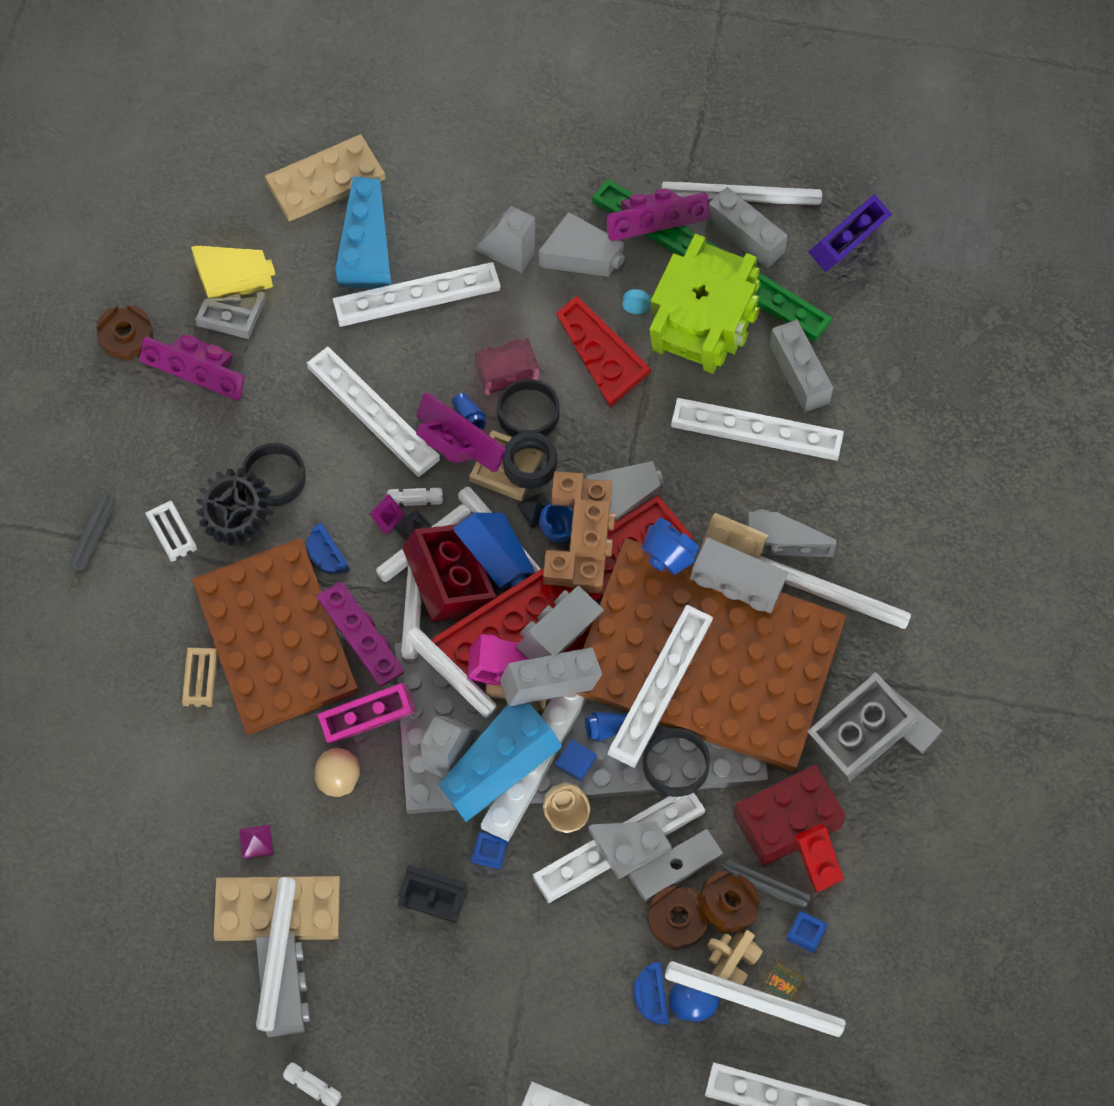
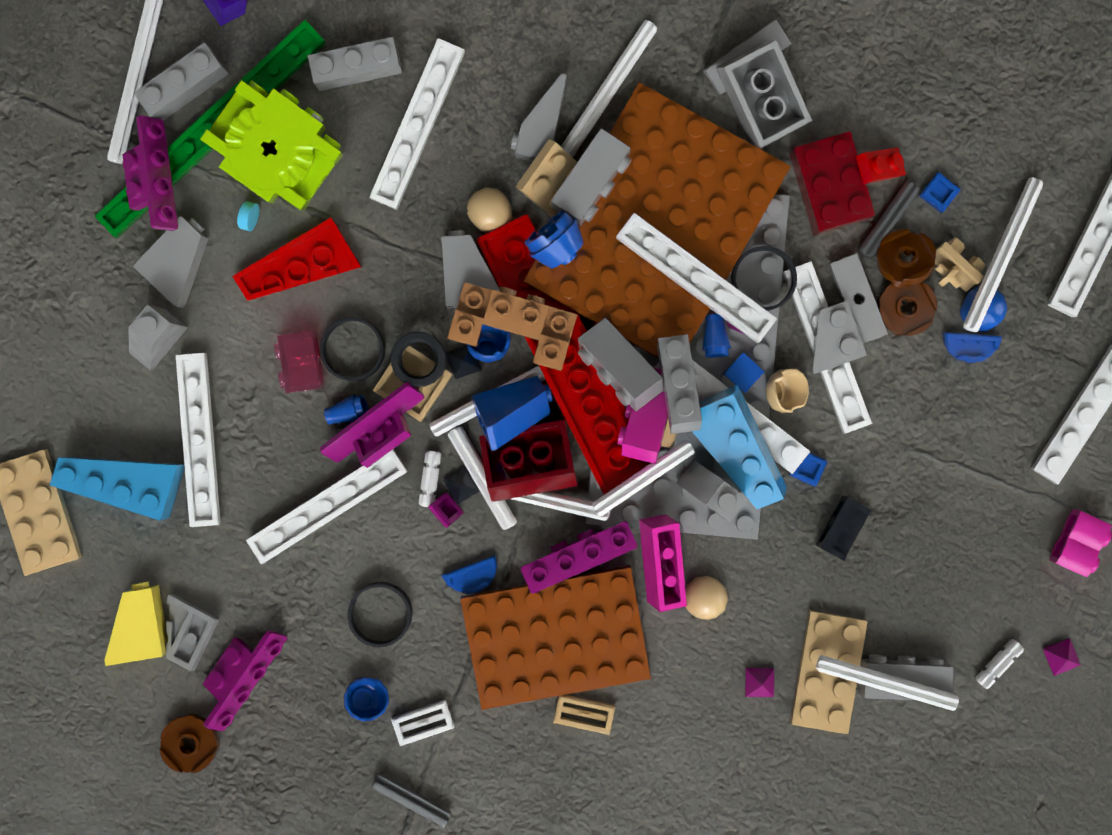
camera: 80 degrees left, 25 degrees up
(188, 472) = (366, 699): none -> blue hair
(236, 484) = (433, 669): black gear -> none
(690, 505) = (489, 209): none -> tan hair
(782, 982) = (983, 225): clear yellow tile -> none

